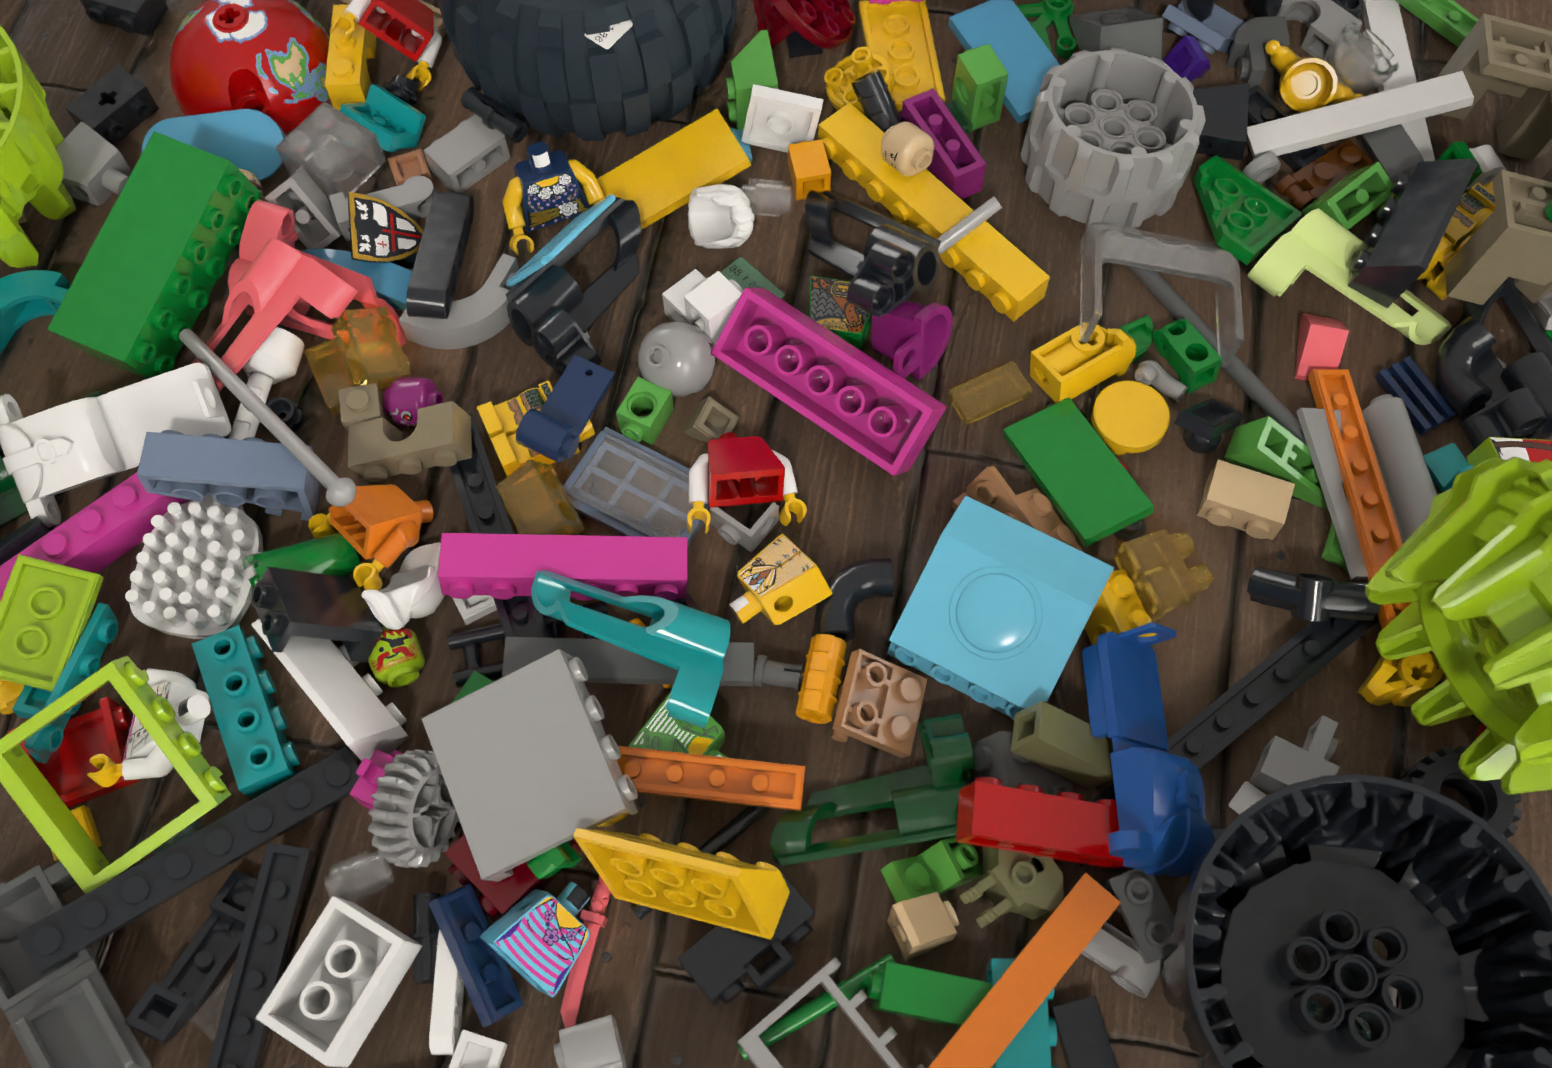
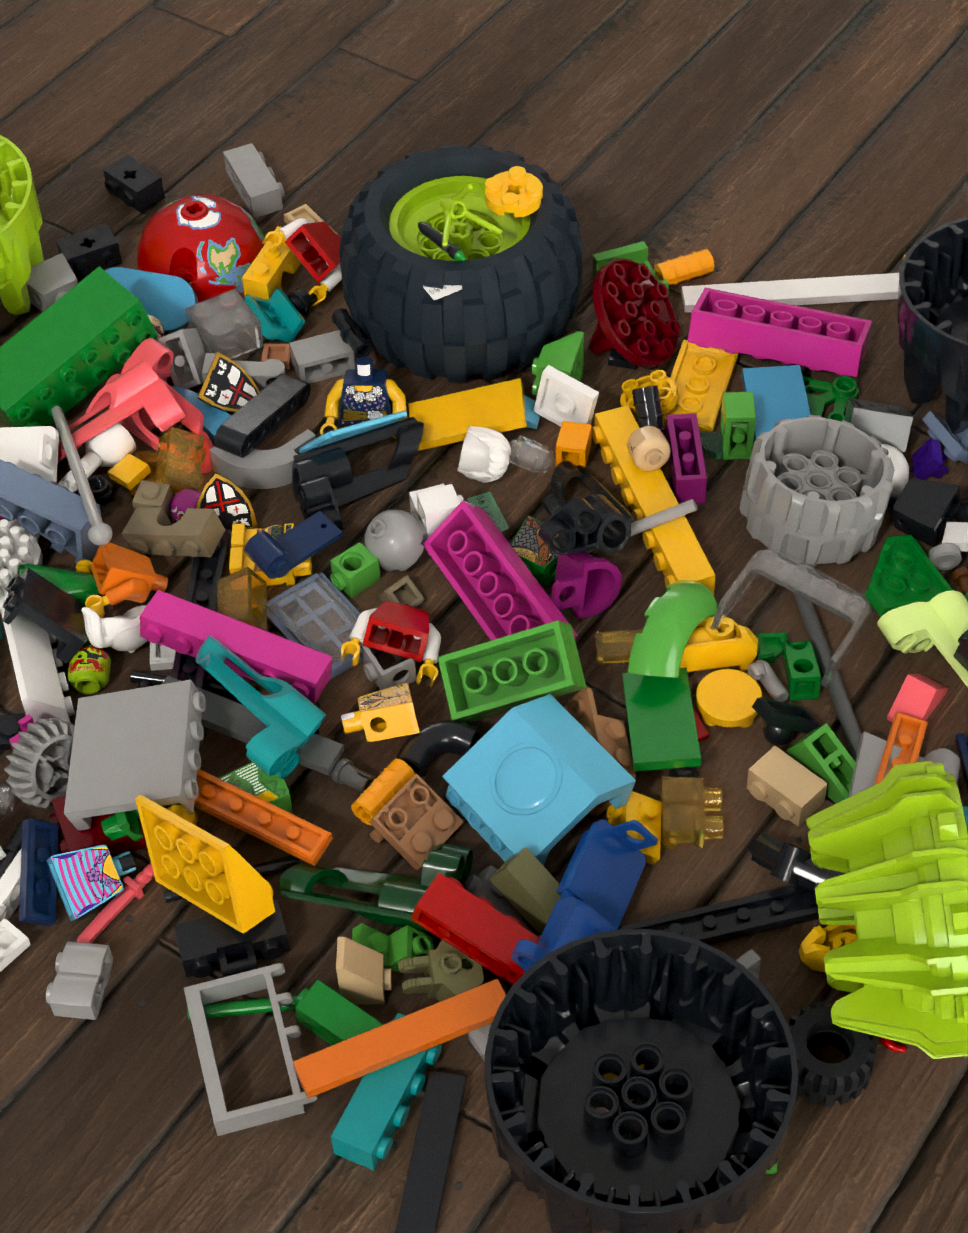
camera: 25 degrees right, 15 degrees down
(312, 380) = (129, 471): none -> yellow tile
(458, 381) = (228, 502): none -> shield
(906, 483) = (511, 671): none -> bright green brick
(1044, 350) = (669, 627): none -> bright green brick

